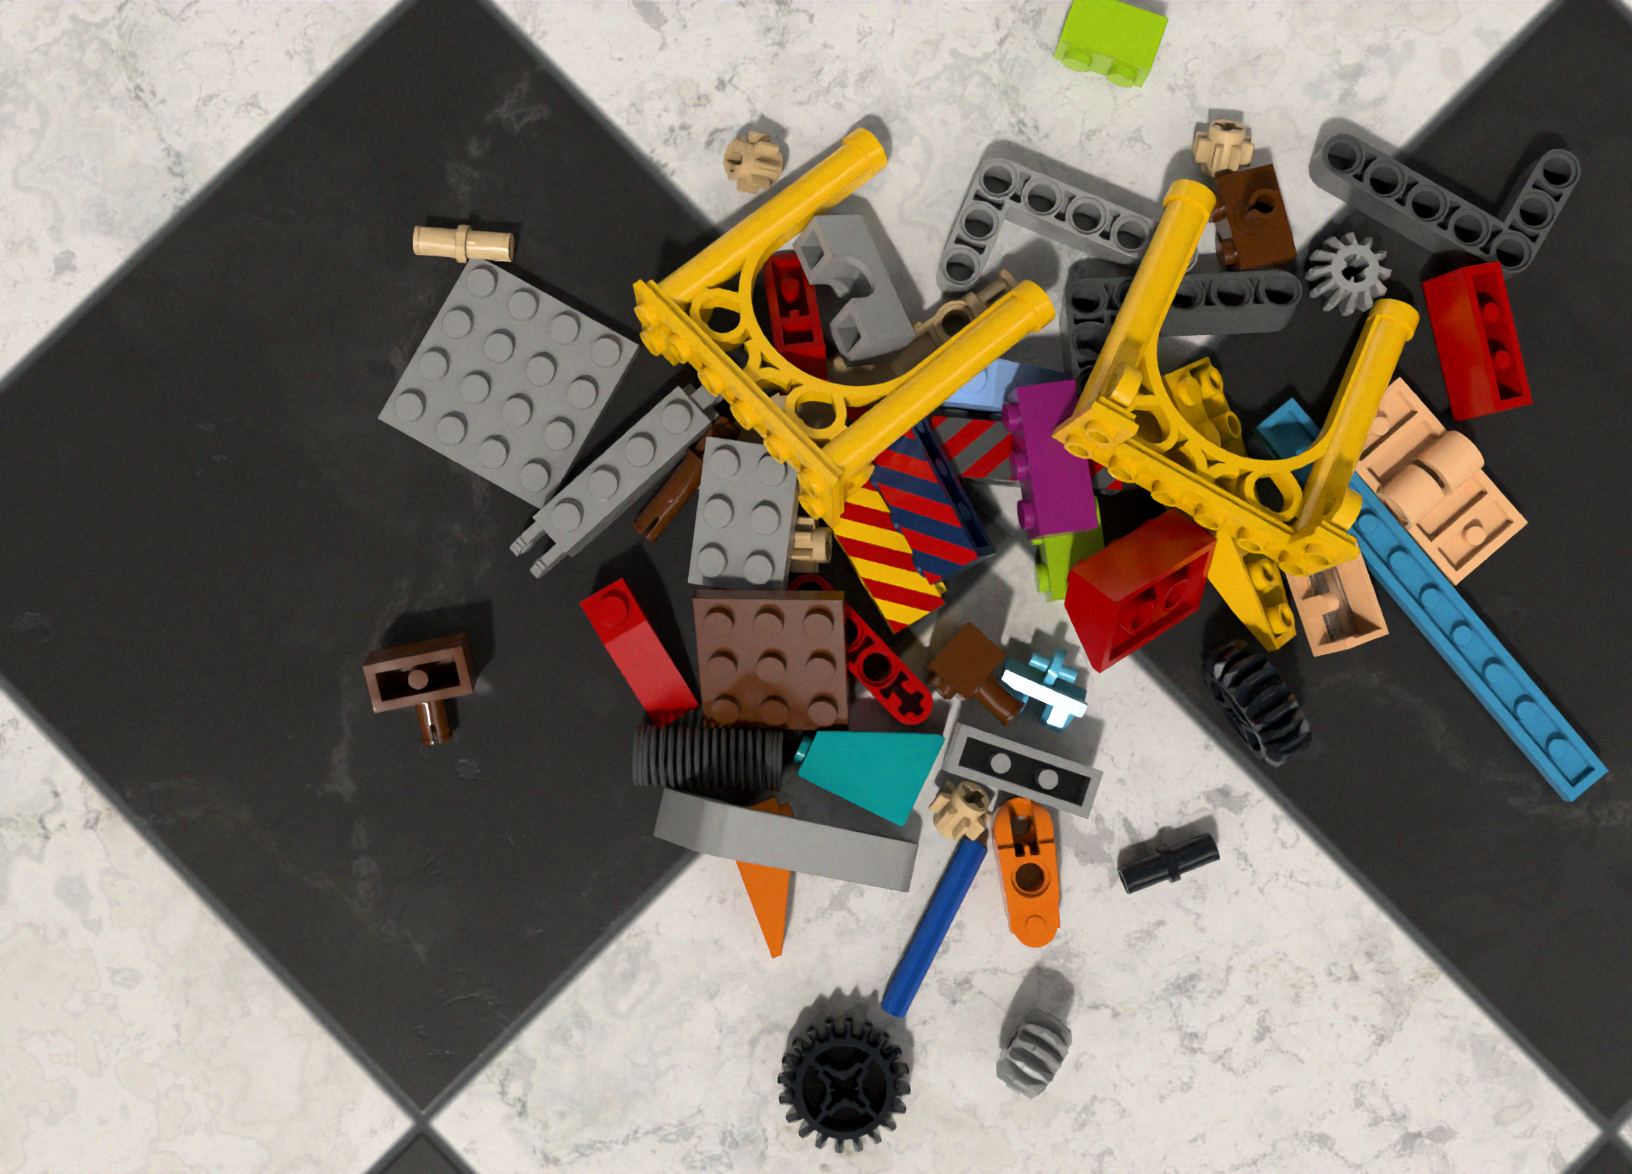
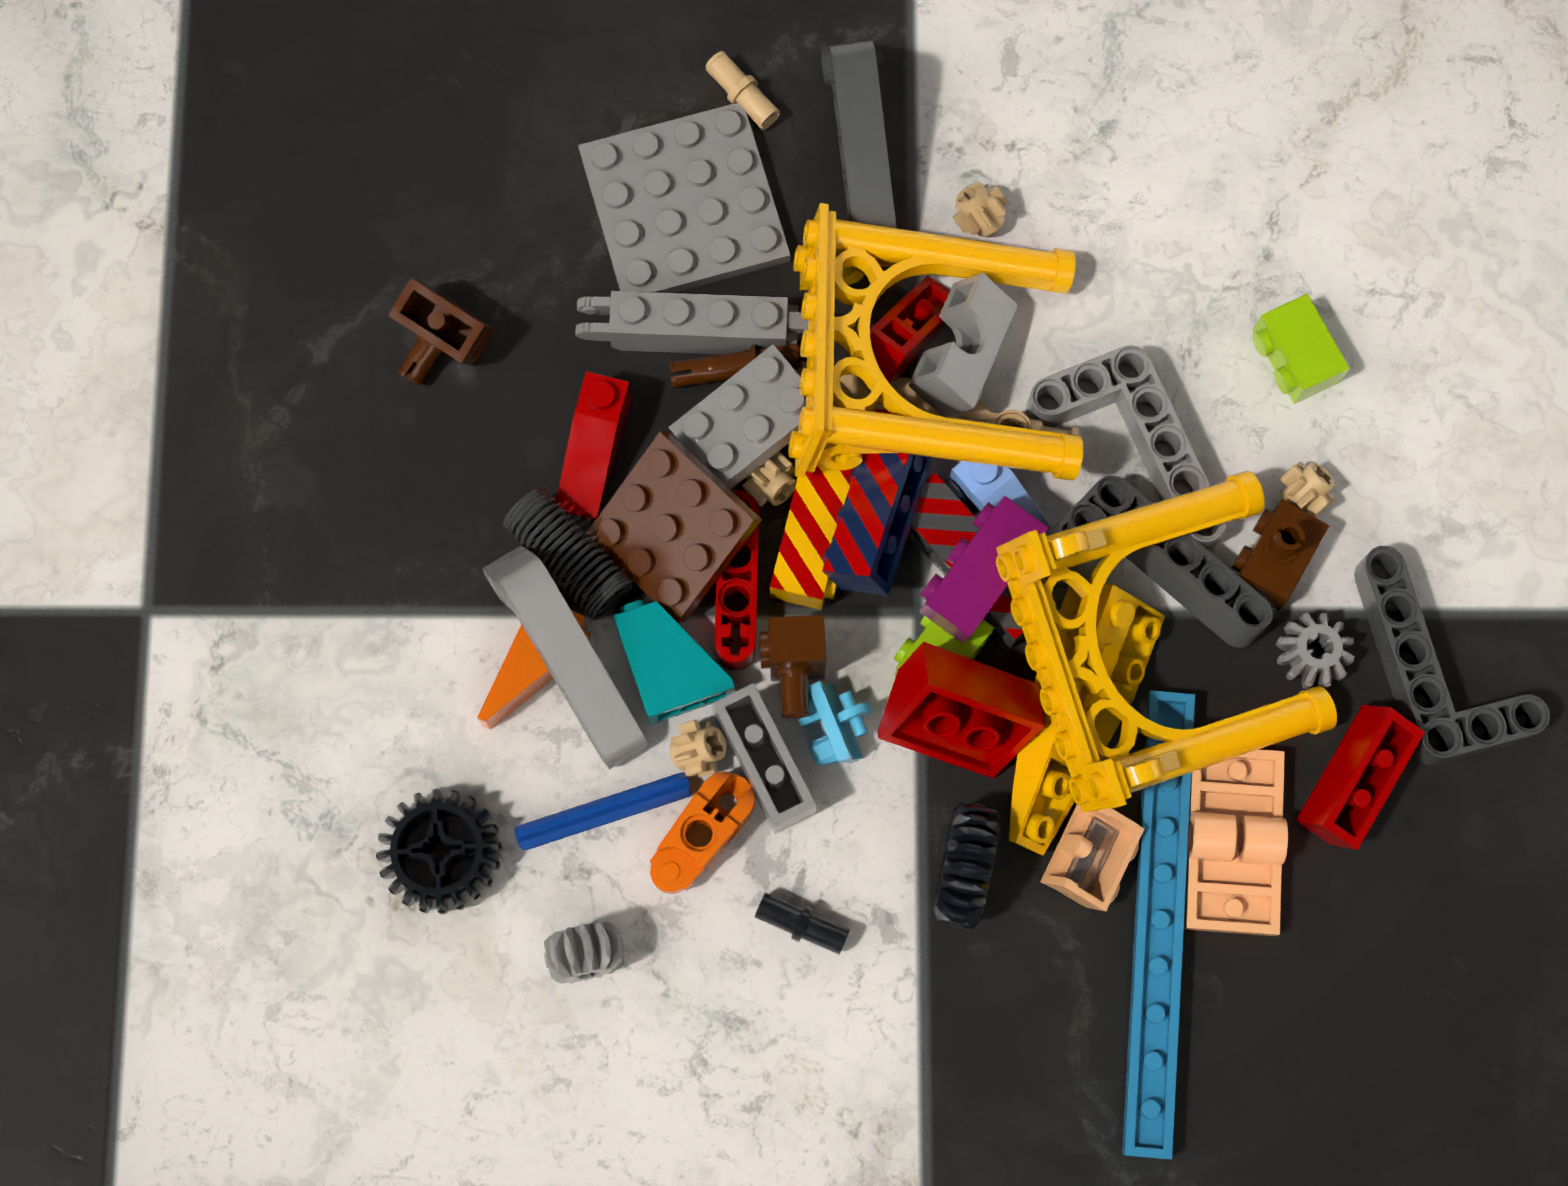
camera: 45 degrees right, 10 degrees down
(549, 146) = (861, 131): none -> dark grey beam

